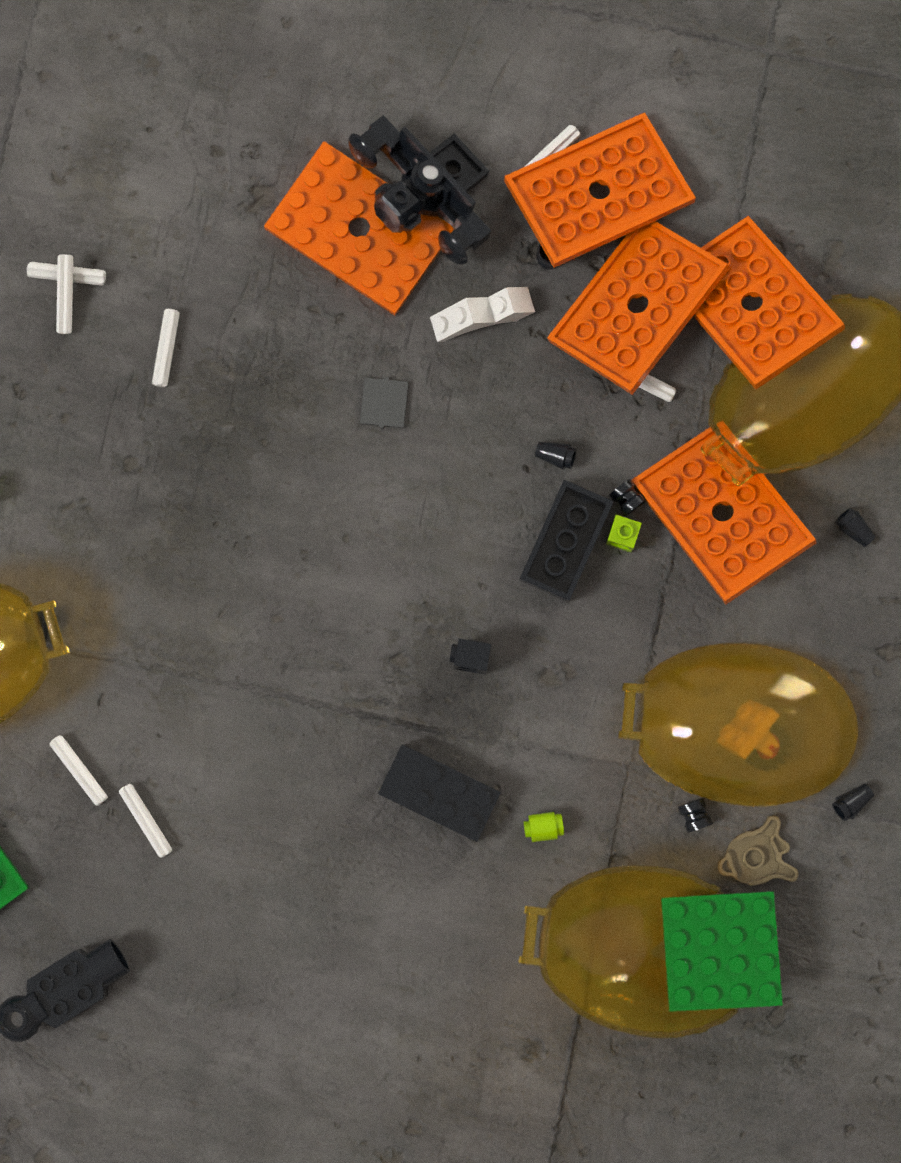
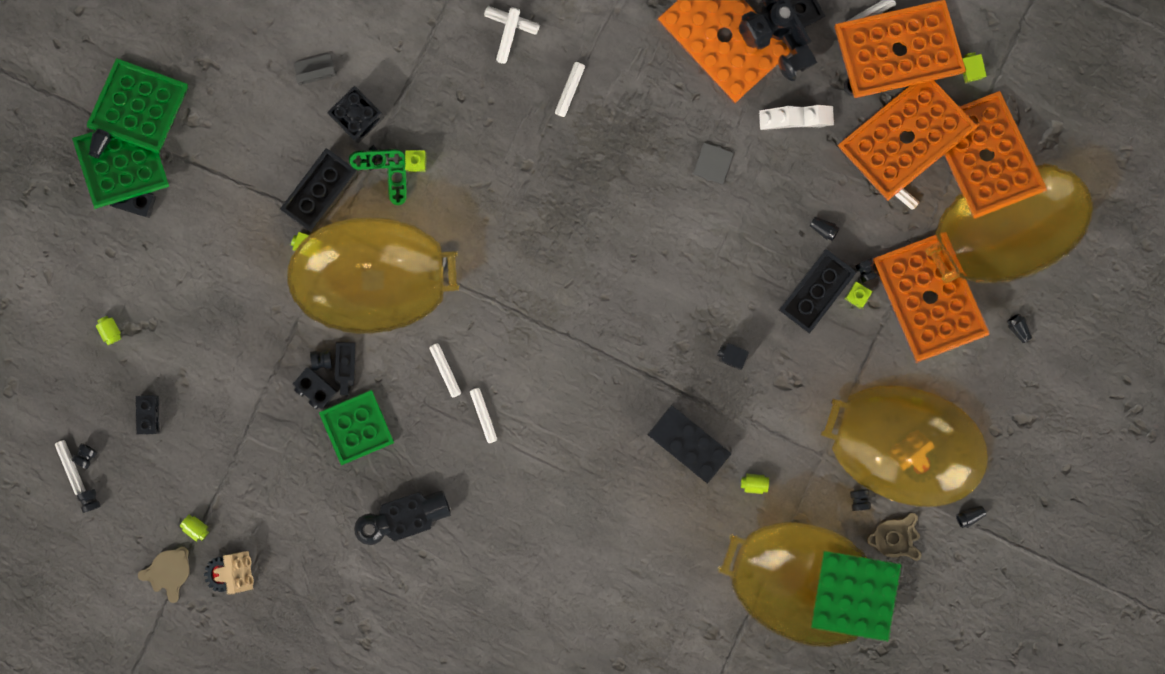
camera: 15 degrees right, 5 degrees up
(707, 193) = (974, 67): none -> lime brick

